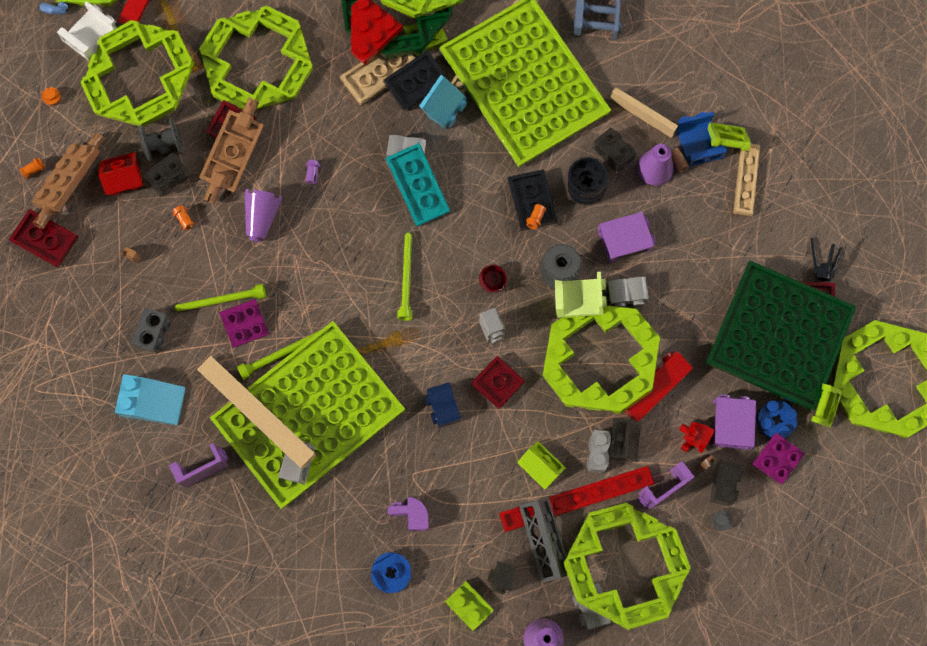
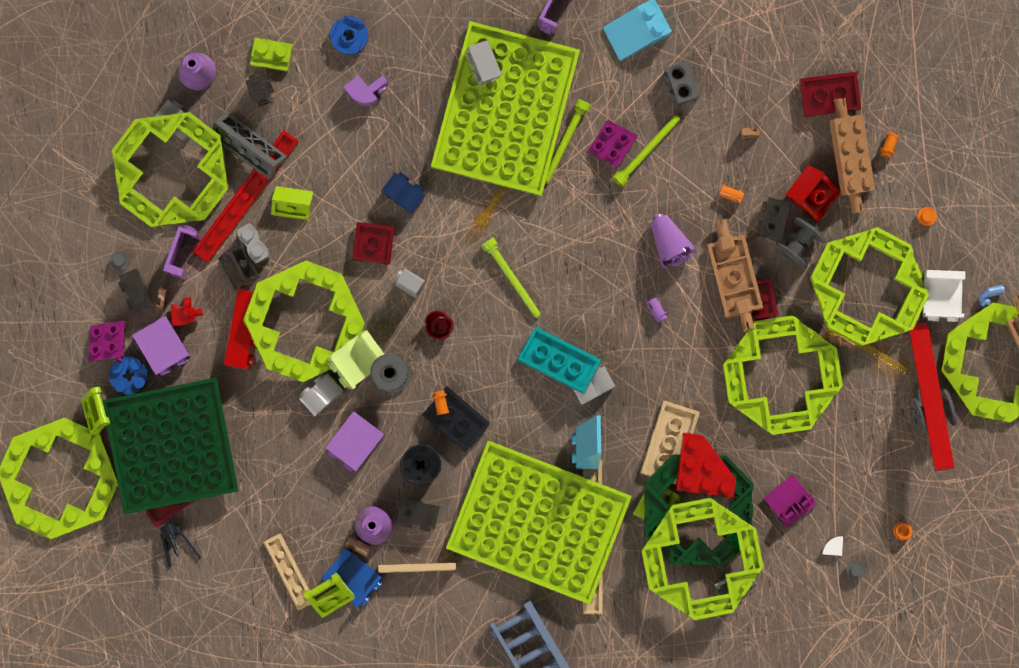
camera: 140 degrees right, 10 degrees up
(257, 412) = (544, 77): tan tile -> none
(413, 80) = (631, 453): black plate -> none

